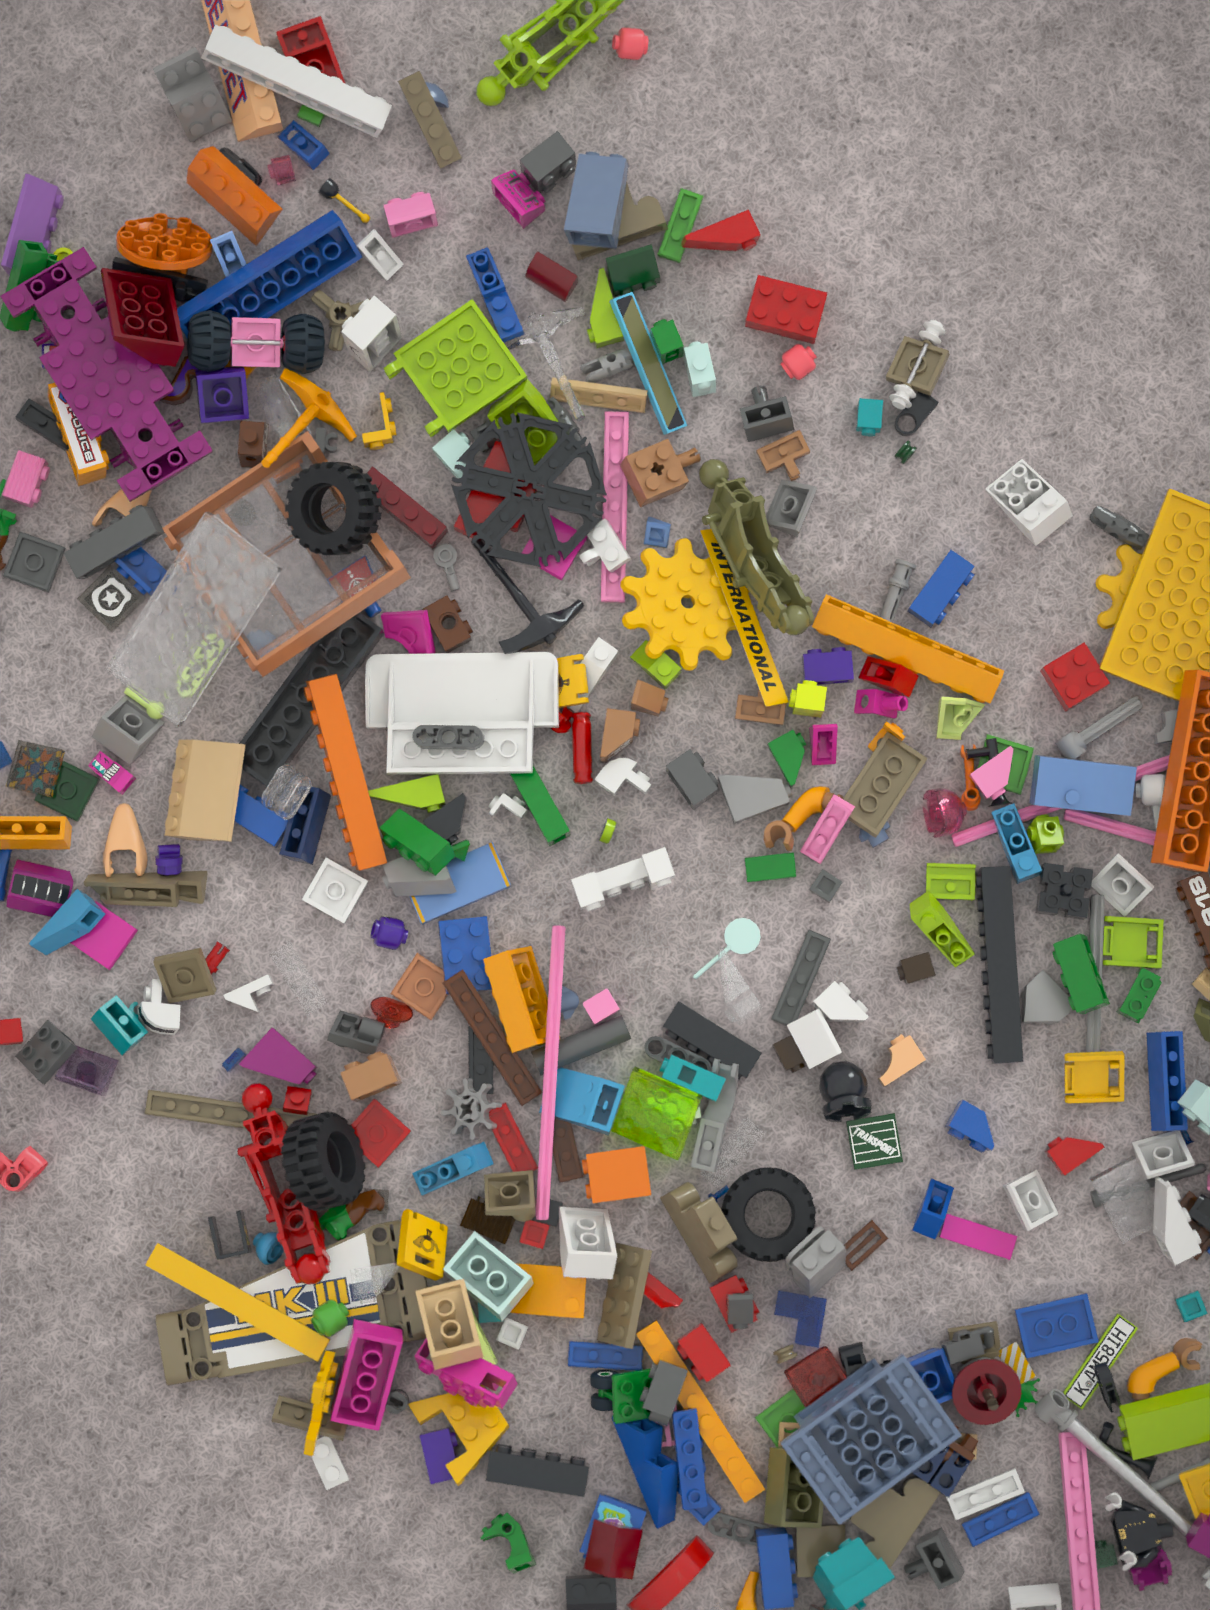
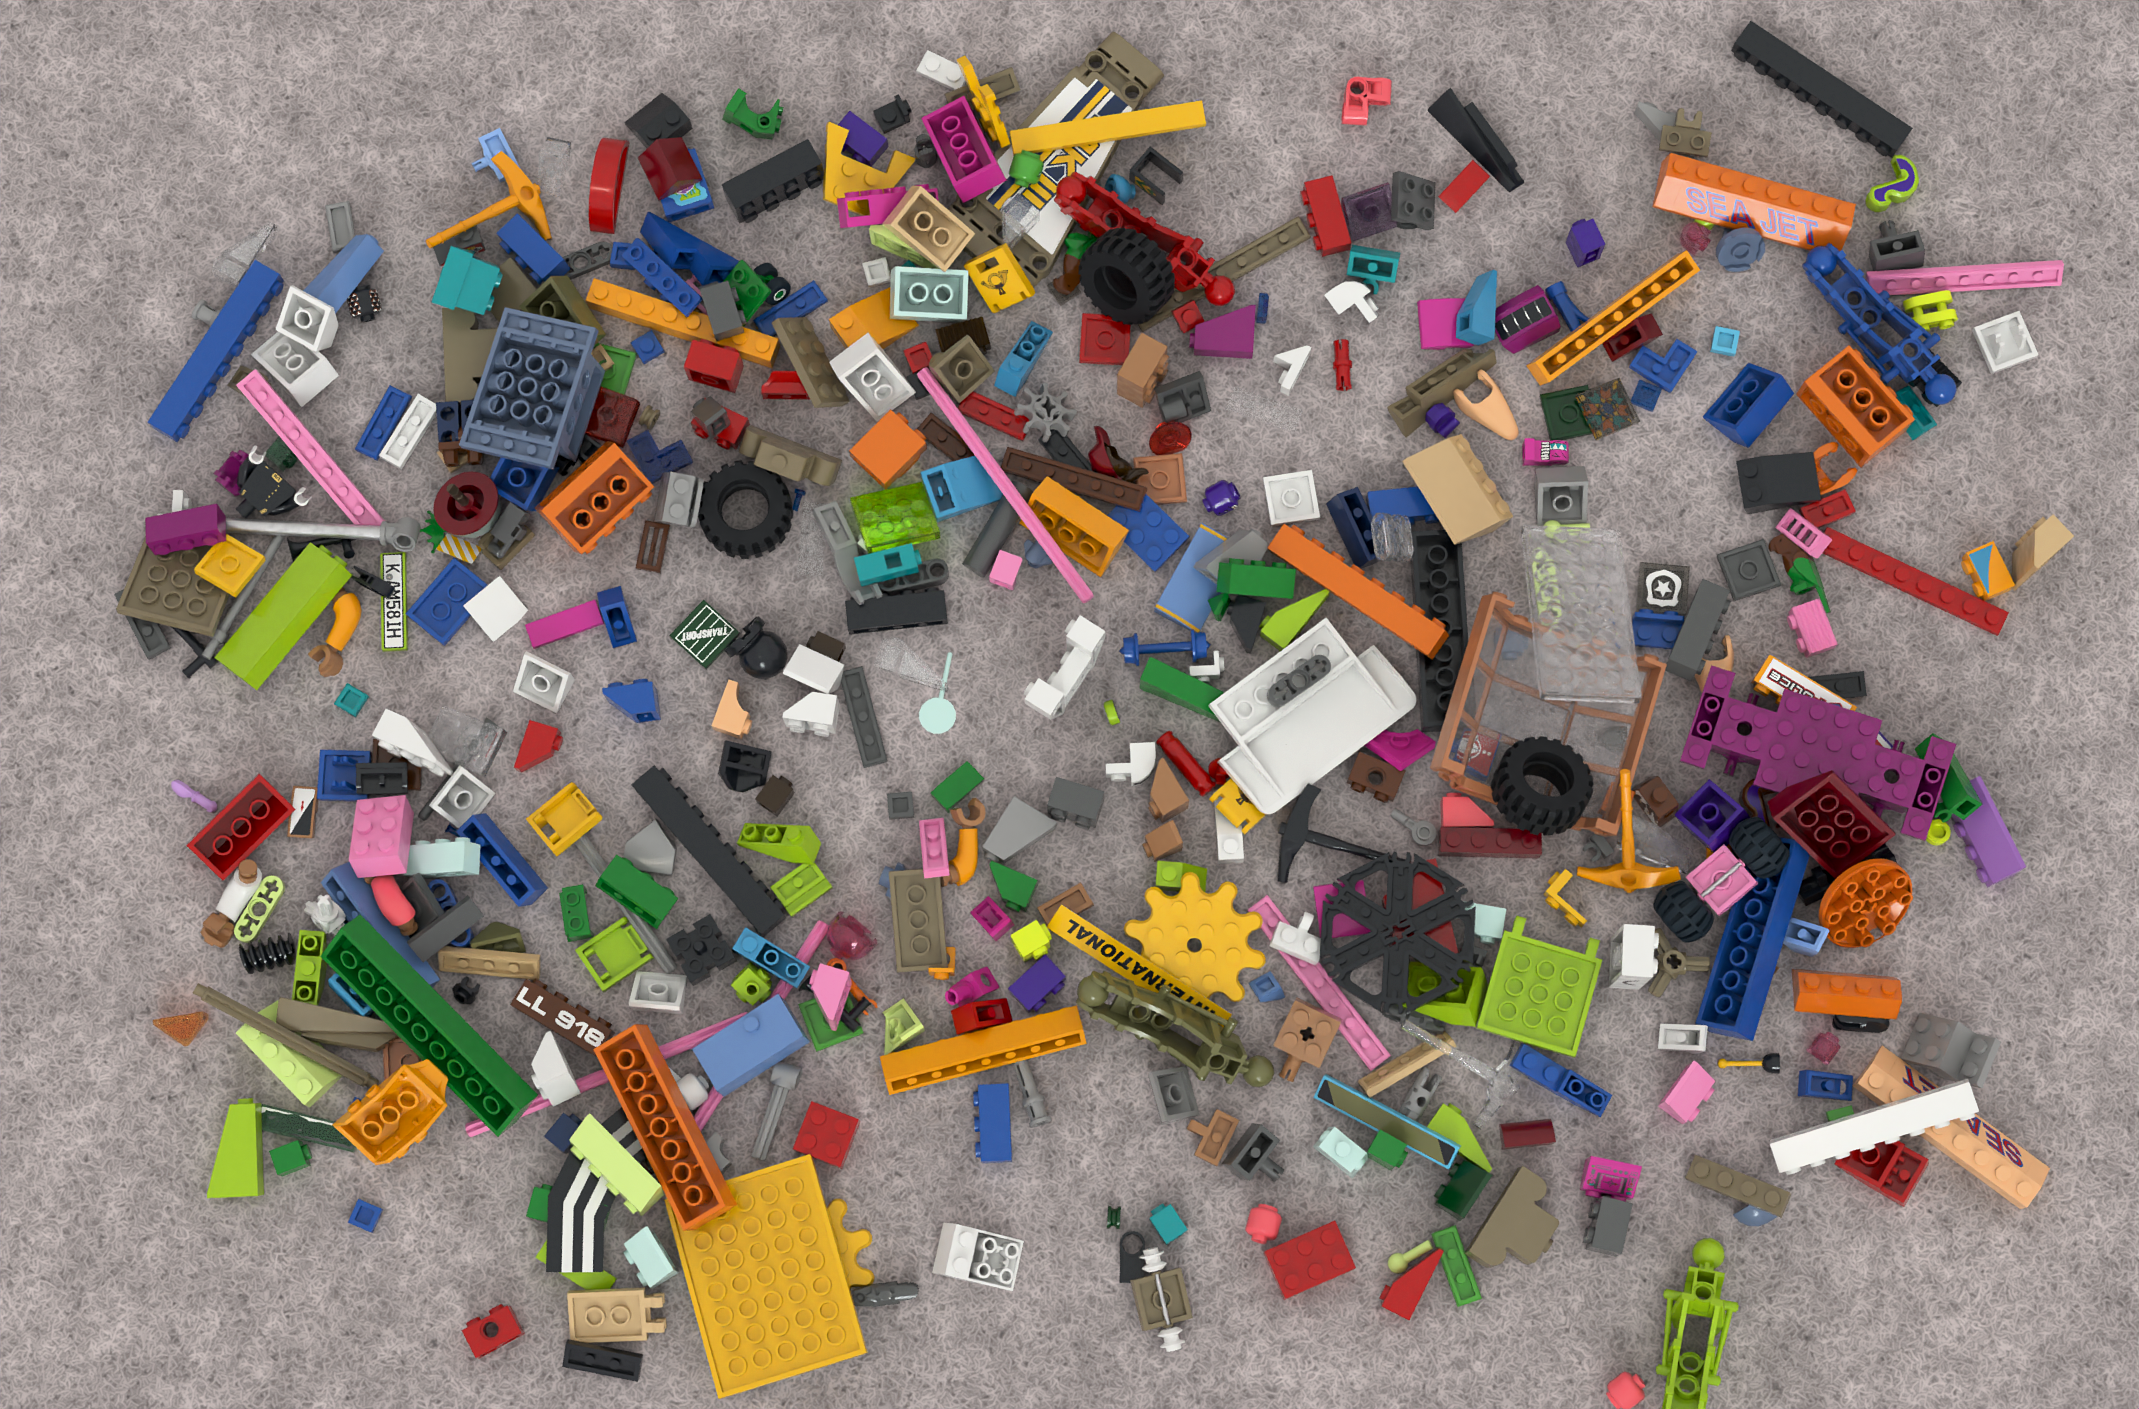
camera: 140 degrees right, 5 degrees down
(123, 1095) = (1325, 216): none -> red brick
(184, 975) = (1353, 338): dark tan tile -> none
(397, 1456) = (893, 114): none -> black bracket
(406, 545) = (1462, 812): none -> coral slope
(453, 1028) = (1108, 462): none -> hair
(501, 830) = (1197, 645): none -> blue piece
(596, 200) = (1541, 1222): sand blue slope -> none
(720, 260) = (1399, 1262): none -> yellowish green bar
(742, 1415) = (647, 347): none -> blue plate
(881, 1315) = (581, 487): none -> orange brick
(923, 1010) = (743, 766): none -> black slope
(937, 1559) = (410, 353): dark grey brick -> none
(1023, 1290) = (496, 608): none -> white sticker

